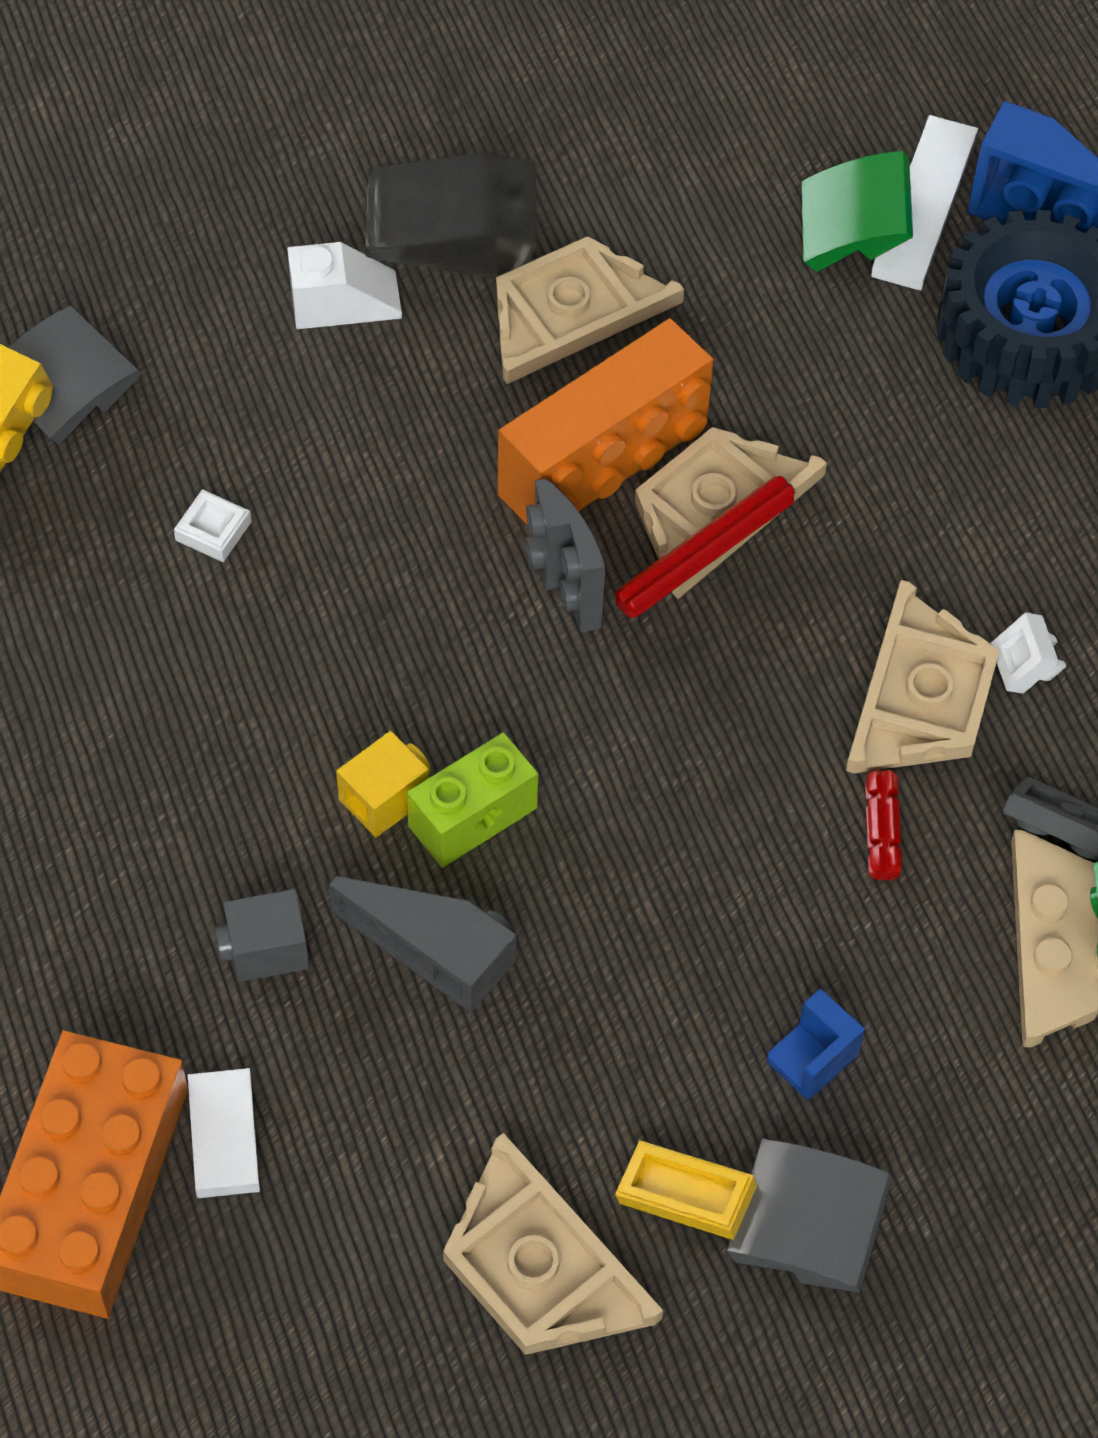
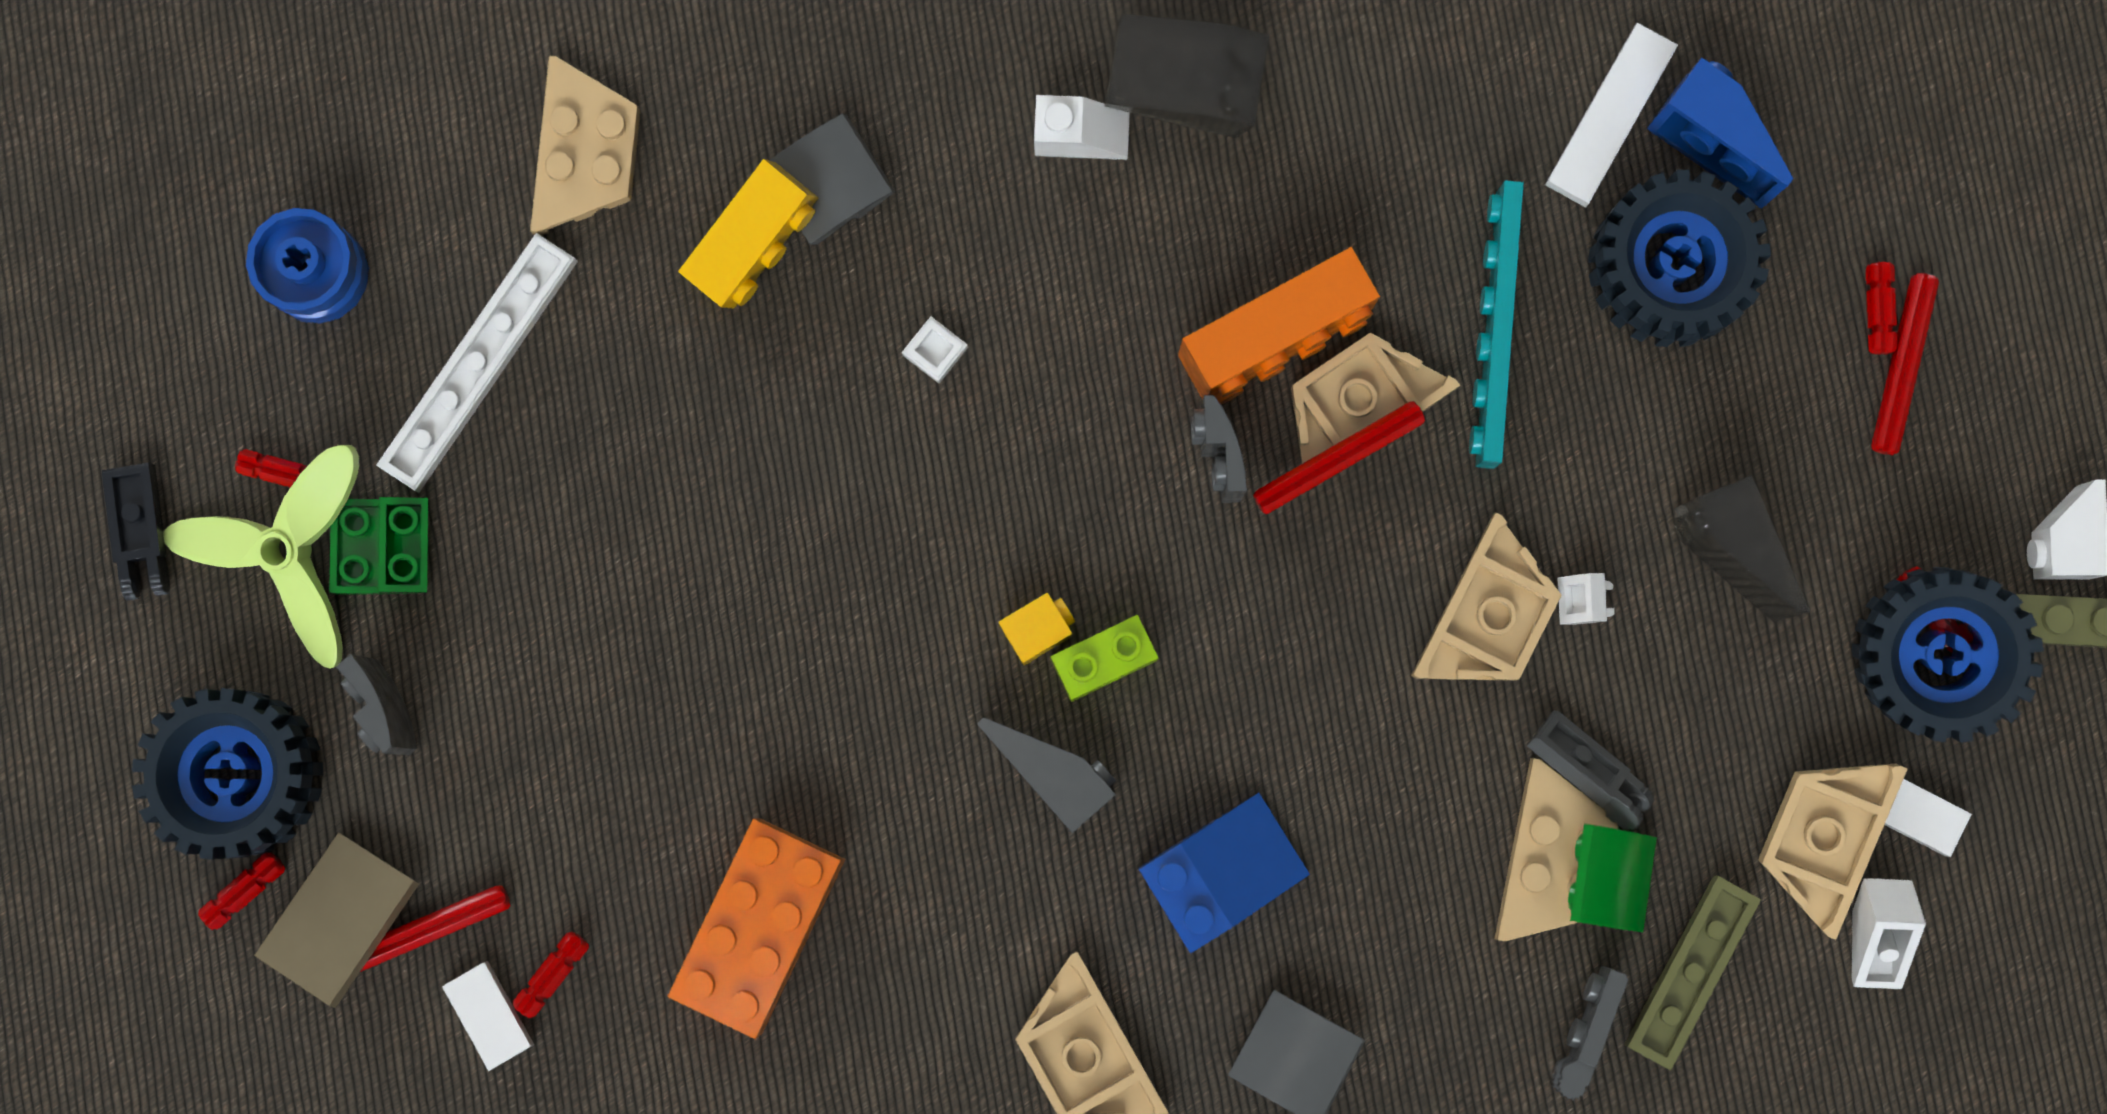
camera: 15 degrees right, 25 degrees up
(223, 1133) = (866, 904): white tile -> none
(263, 936) = (919, 748): dark grey brick -> none
(572, 303) = (1276, 176): tan wing -> none
(662, 1020) = (1223, 872): none -> blue slope
(686, 1189) = (1207, 1019): yellow tile -> none
(818, 1046) = (1331, 919): blue panel -> none
(856, 417) = (1498, 304): none -> teal plate
(857, 208) = (1546, 124): green slope -> none
(883, 825) = (1429, 731): red axle -> none

